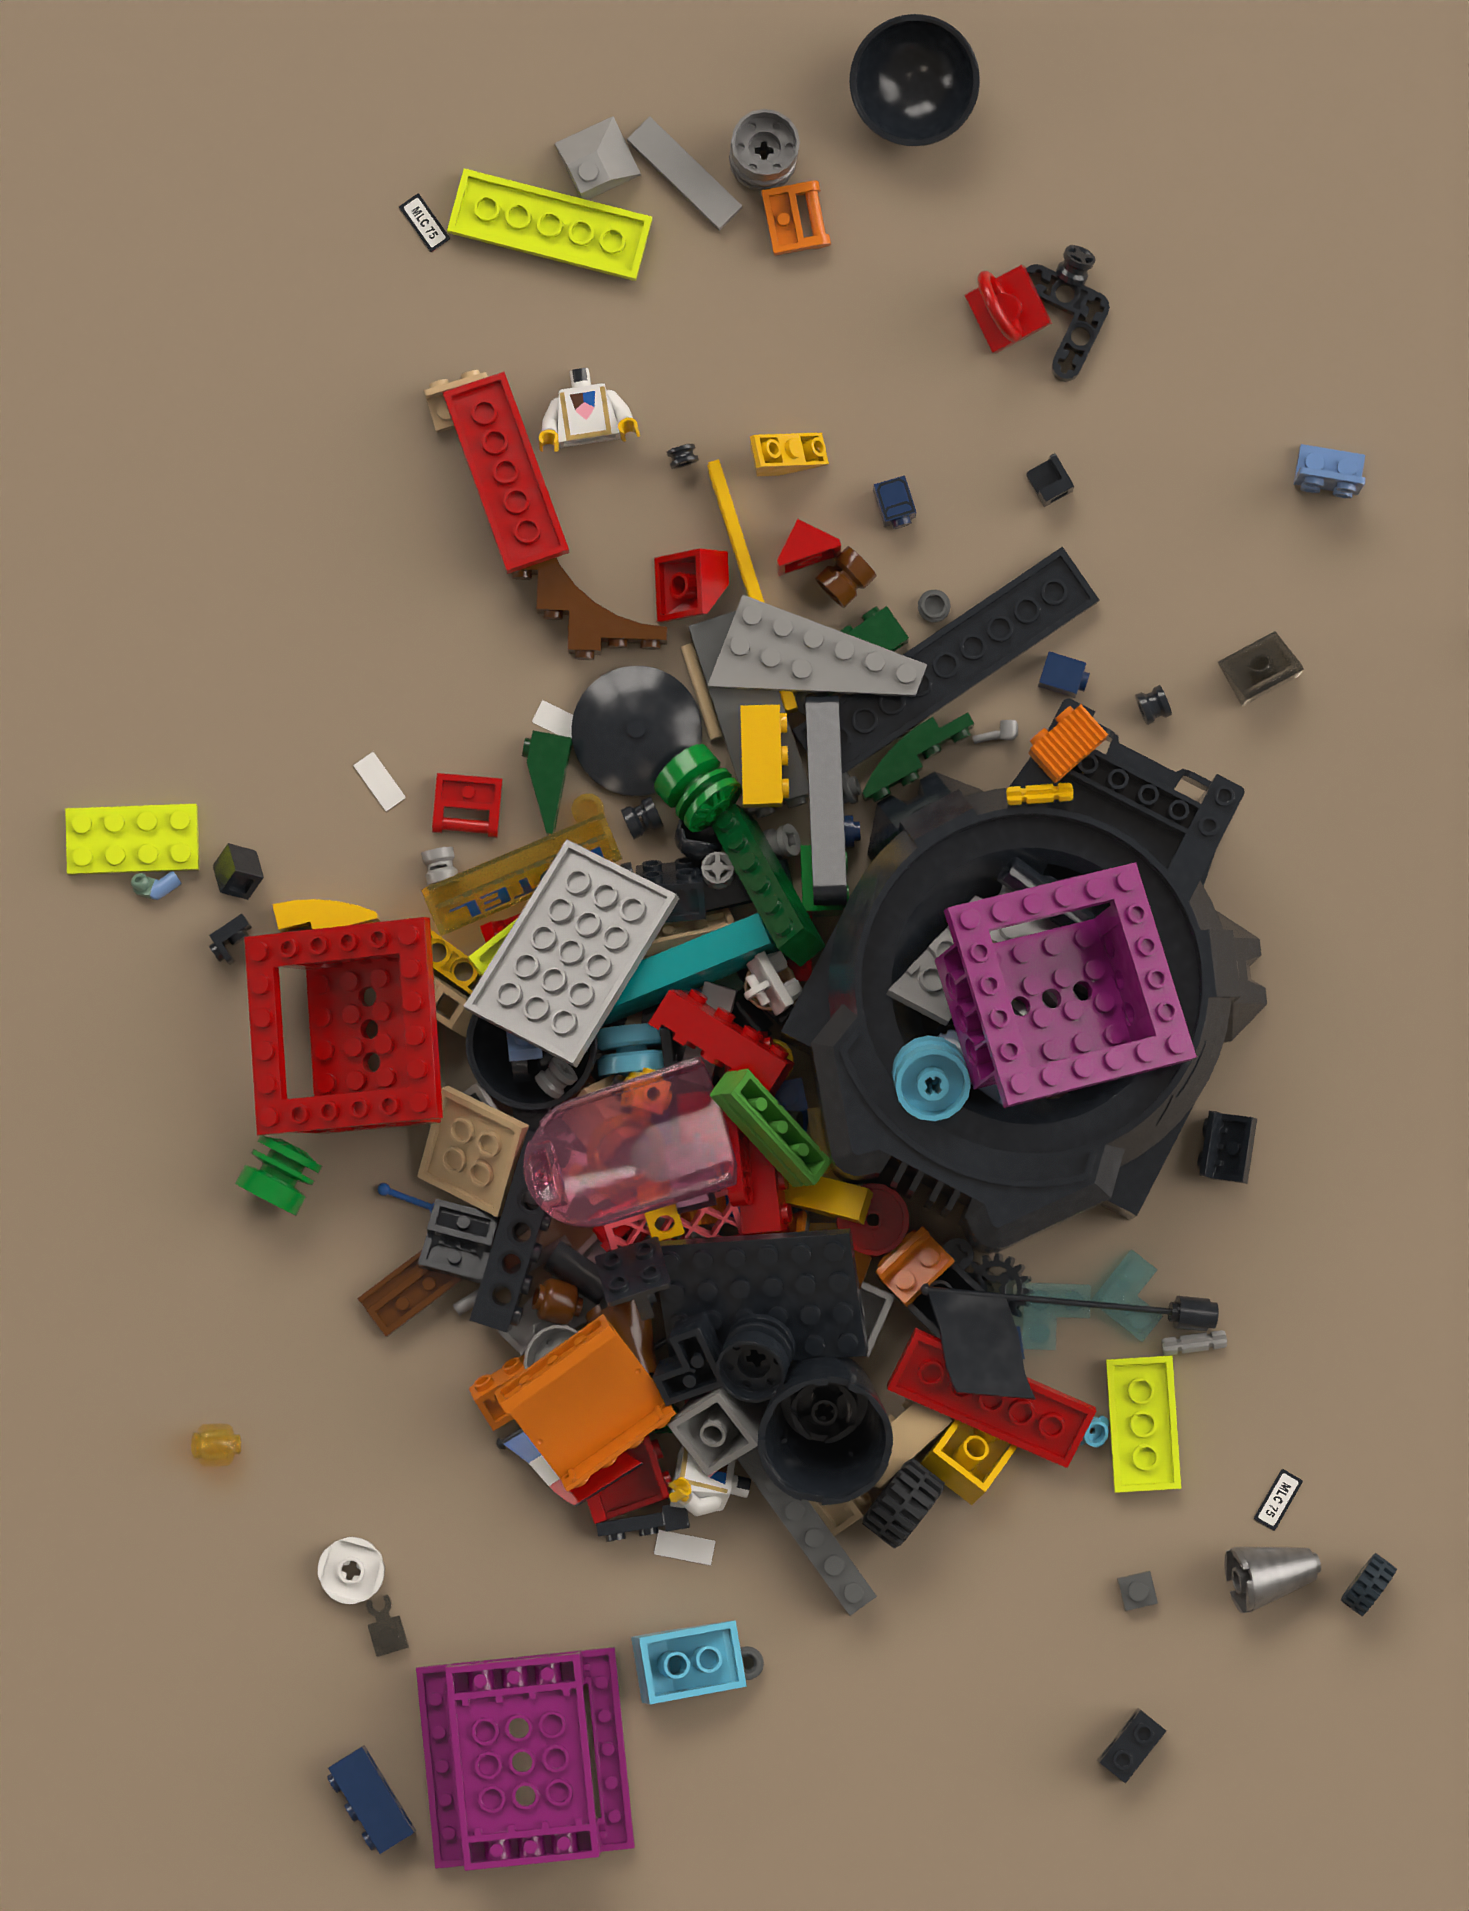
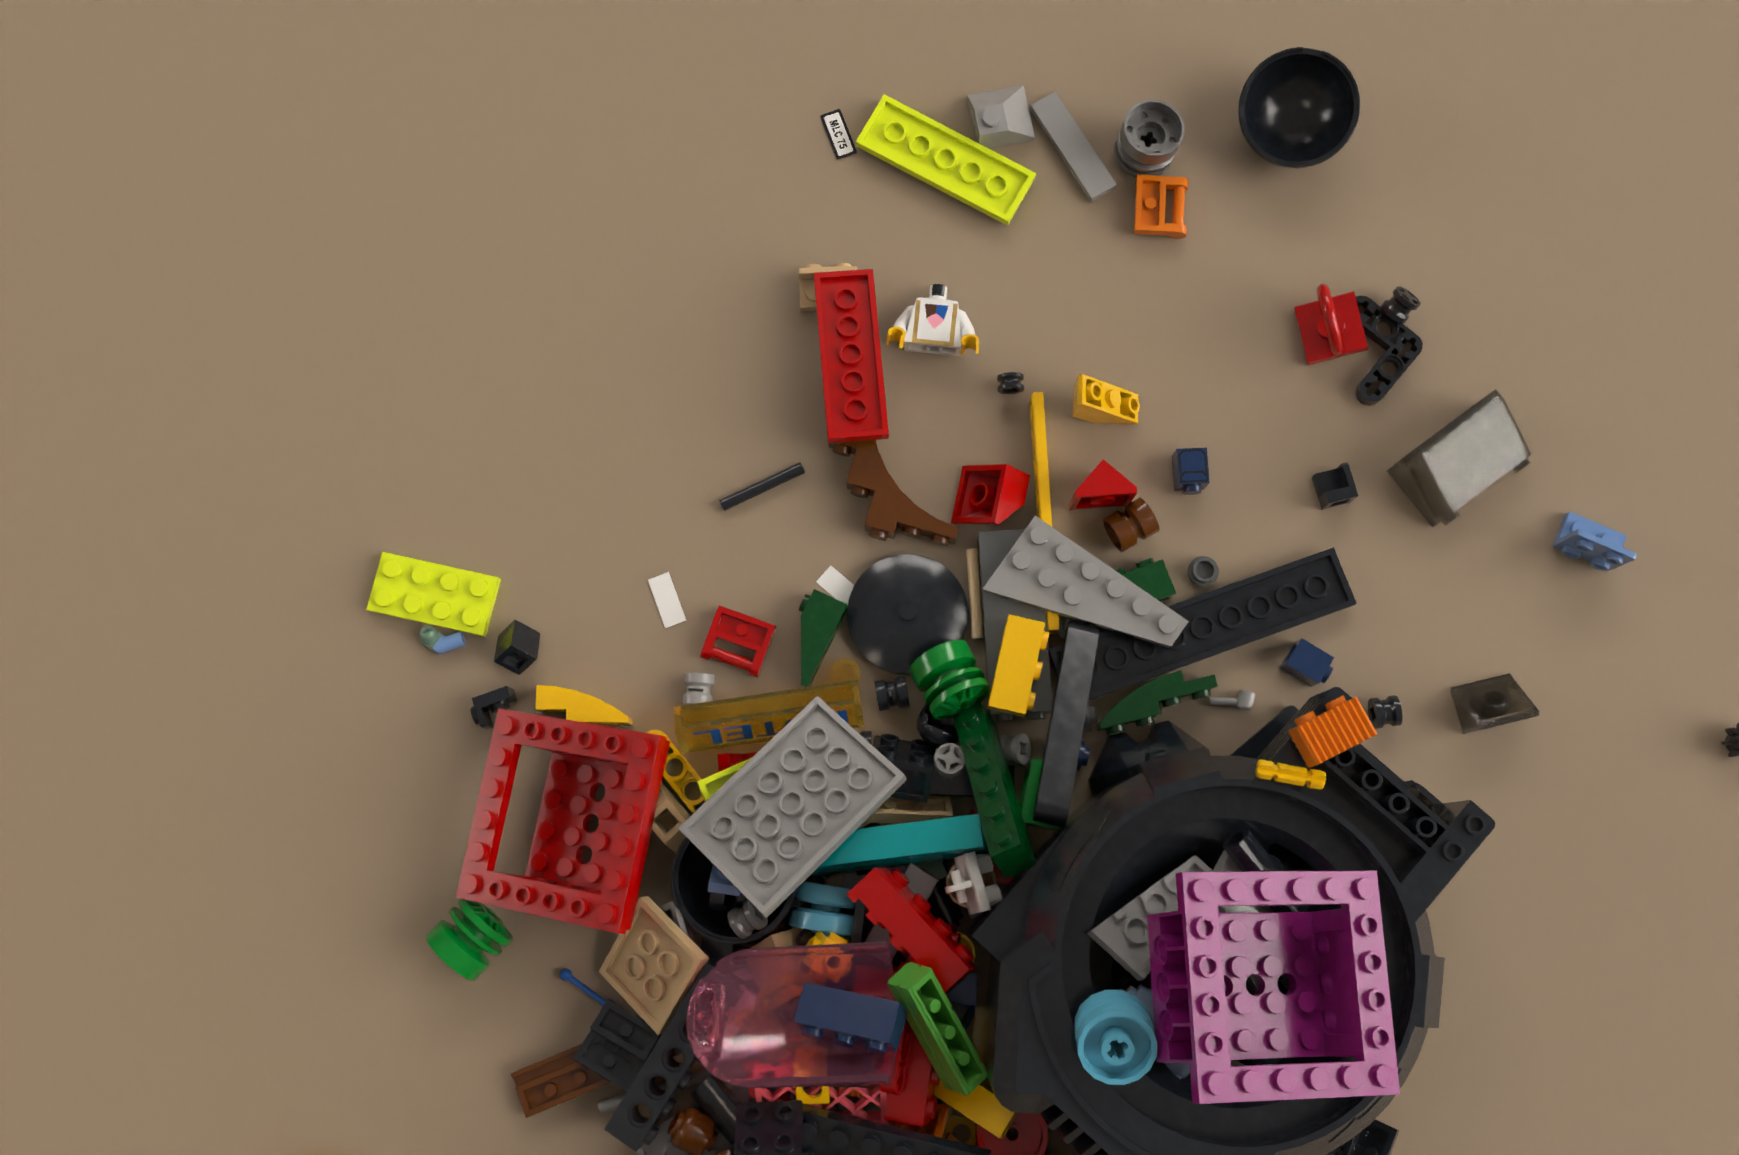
camera: 15 degrees right, 5 degrees down
(447, 634) = (762, 486): none -> black bar
(683, 1137) = (850, 1018): none -> dark blue brick
(1175, 418) = (1462, 460): none -> clear smoke windscreen

